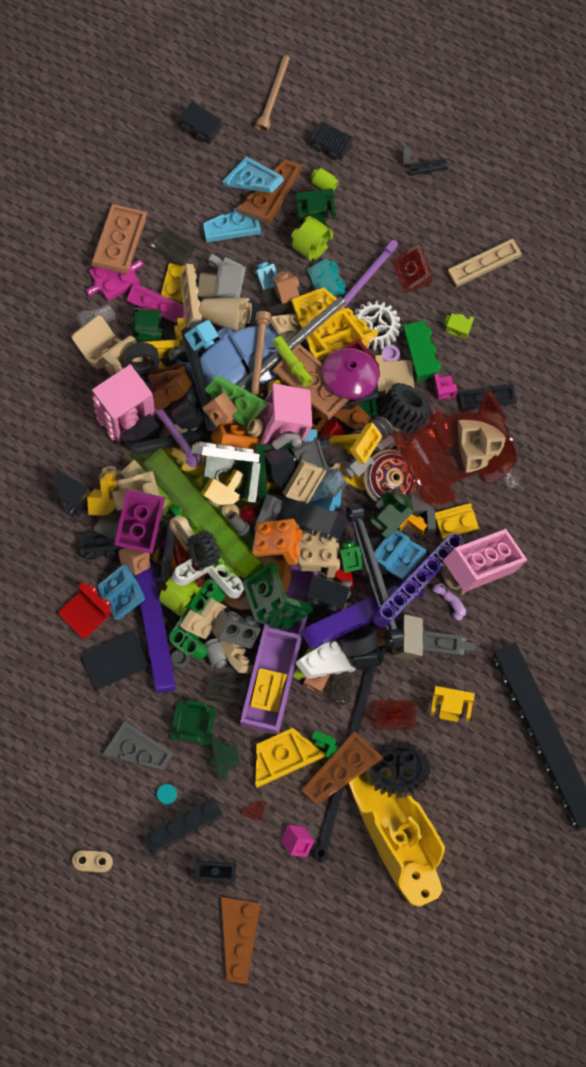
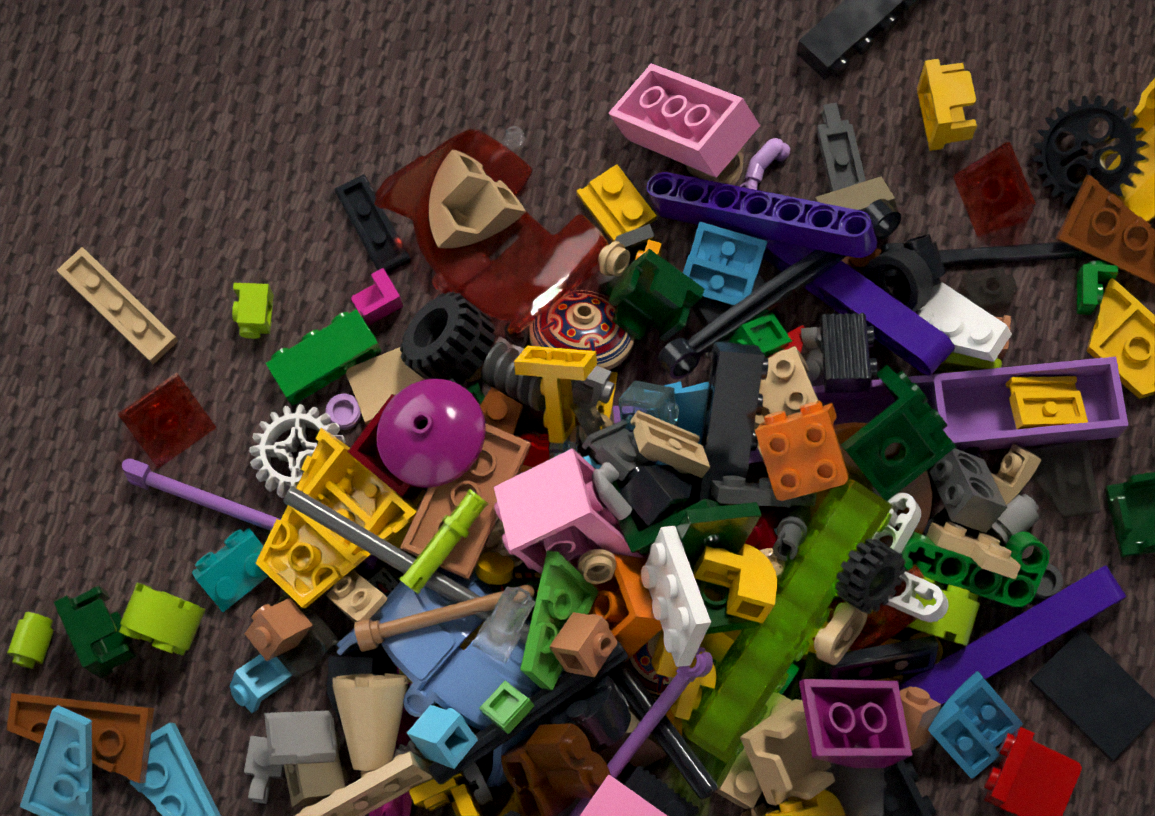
camera: 100 degrees left, 0 degrees up
(204, 367) = (506, 707): none -> bright green tile
(241, 376) = (502, 629): none -> clear piece
(416, 496) = (613, 259): none -> tan plate

